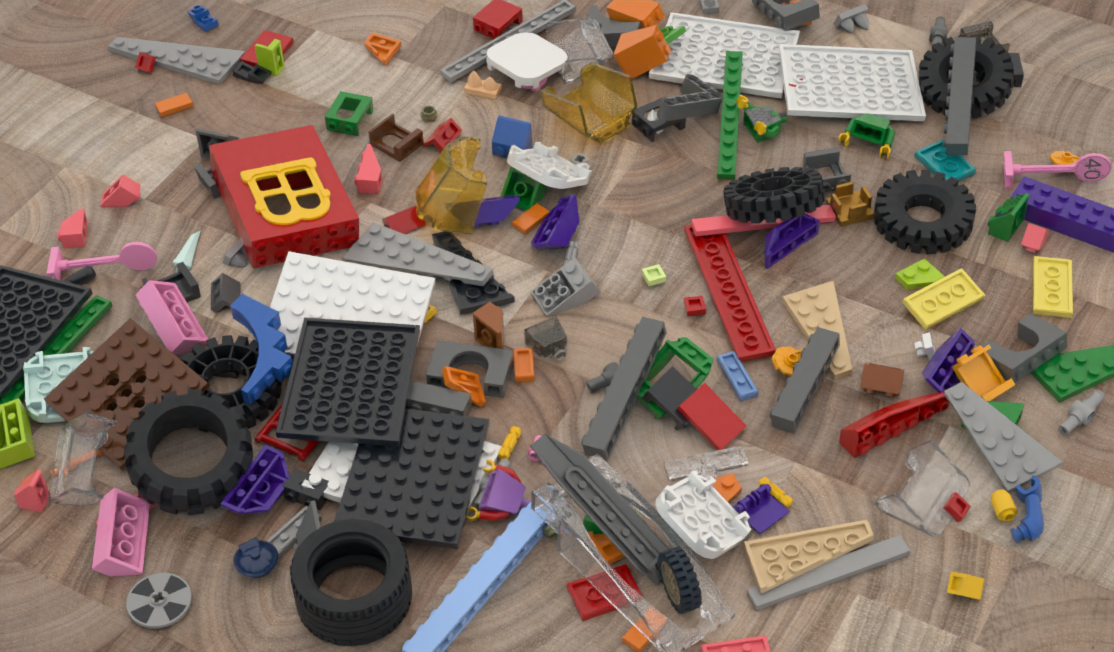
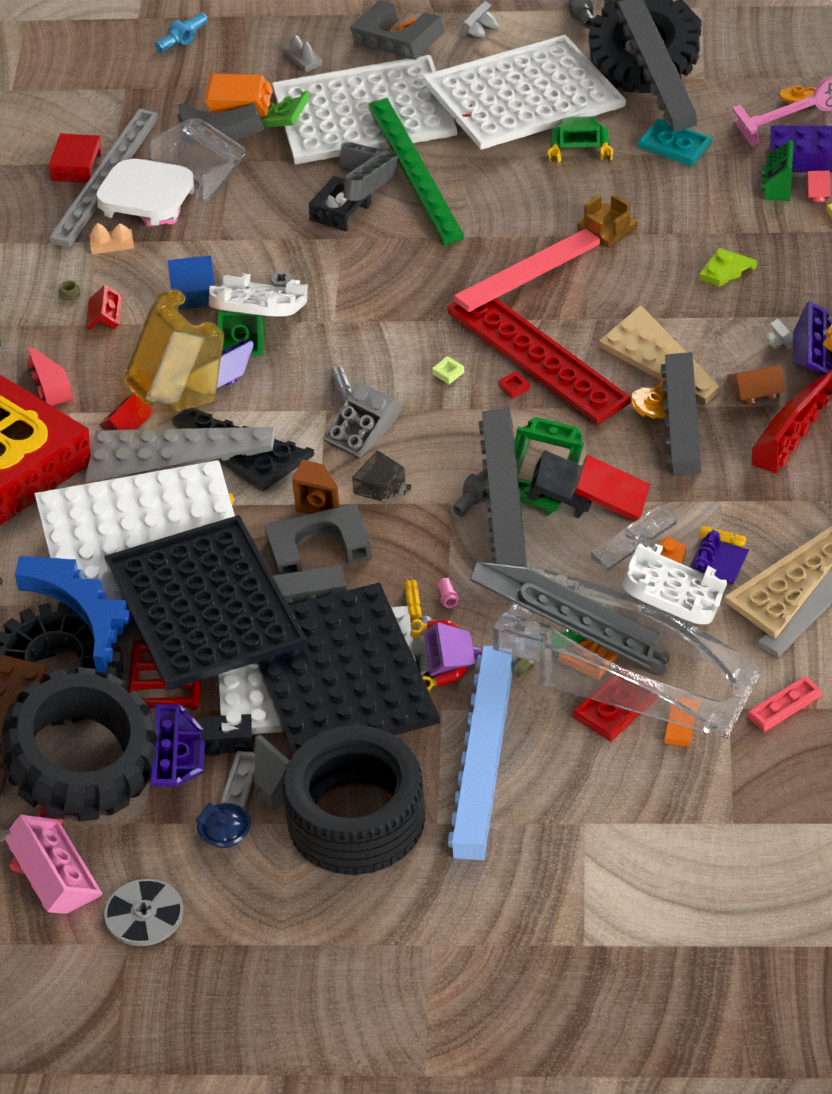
camera: 25 degrees left, 0 degrees up
(410, 140) = (71, 329): reddish brown panel -> none
(464, 382) = (324, 556): orange wing -> none
(523, 365) = (372, 516): orange tile -> none
(530, 218) = (269, 361): orange tile -> none
(558, 225) = (307, 356): dark purple wedge -> none
(598, 106) = (262, 208): clear yellow windscreen -> none
(641, 50) = (275, 134): orange slope -> none
(679, 580) = (693, 655): black wheel -> none
(737, 376) = (606, 439): medium blue tile -> none
(761, 121) = (453, 167): torso -> none
(774, 195) = (529, 236): black tyre -> none
(788, 237) = (565, 278): dark purple wedge -> none
(827, 158) = (552, 180): dark grey panel -> none
(913, 190) = (671, 178): black tyre -> none
(943, 298) = (764, 281): light yellow tile -> none

